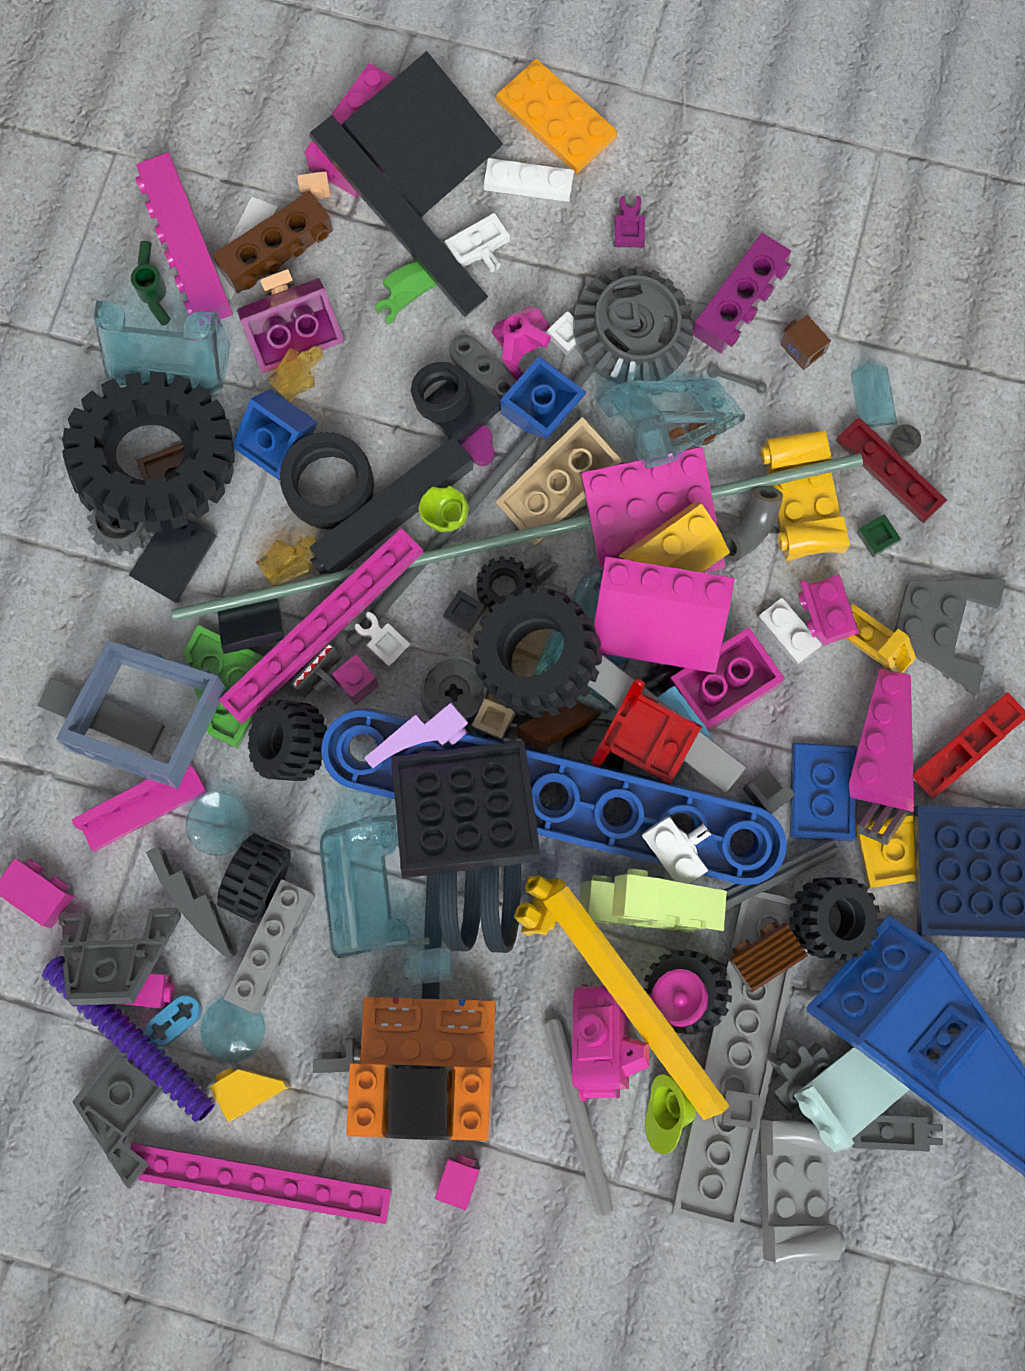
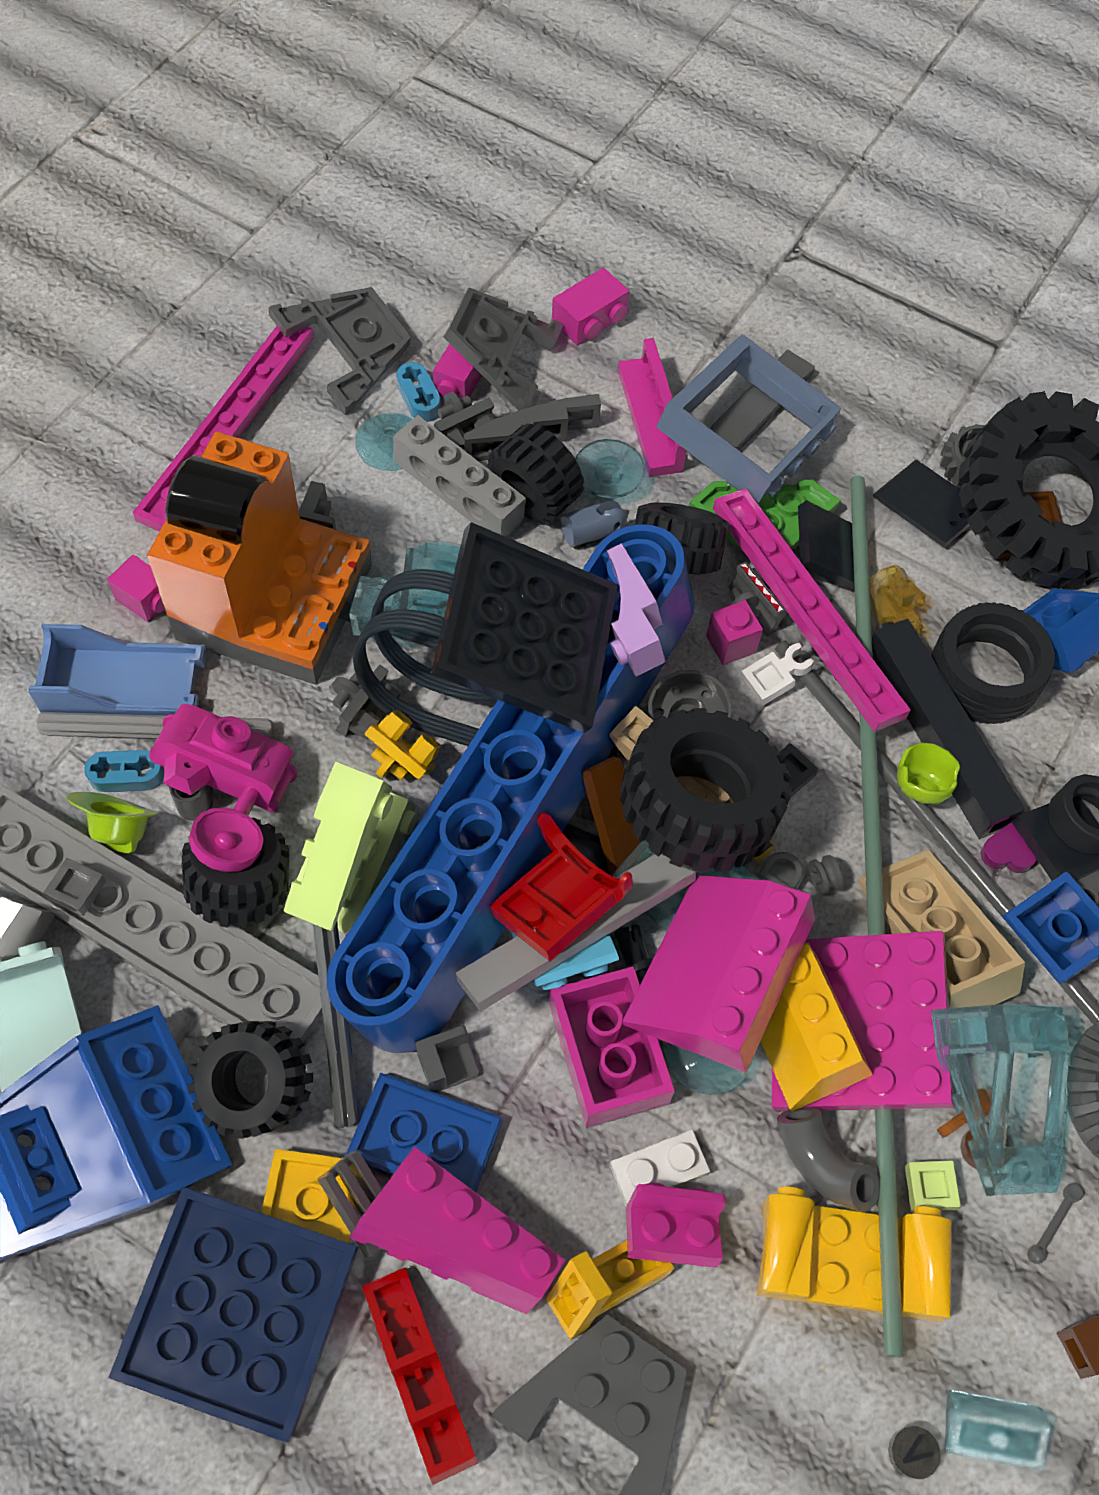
camera: 100 degrees right, 15 degrees down
(139, 1048) = (383, 354): dark purple piece -> none
(192, 956) = (462, 415): none -> dark grey hips
(244, 1090) = (322, 429): yellow slope -> none
(281, 826) = (593, 522): none -> sand blue piece
(501, 568) = (828, 810): black tyre -> none
(519, 957) = (356, 716): none -> dark grey hips
(546, 1164) = (106, 675): none -> medium blue piece
(632, 1122) = (124, 771): none -> dark azure beam
(636, 1004) = (237, 789): yellow tile -> none
(677, 849) = (401, 881): white plate -> none
(742, 456) = (932, 1185): none -> yellowish green plate
(767, 956) = (237, 974): reddish brown brick -> none
(796, 1070) = (93, 973): dark grey plate -> none
(878, 535) = (769, 1348): dark green plate -> none
(891, 470) = (868, 1408): dark red plate -> none

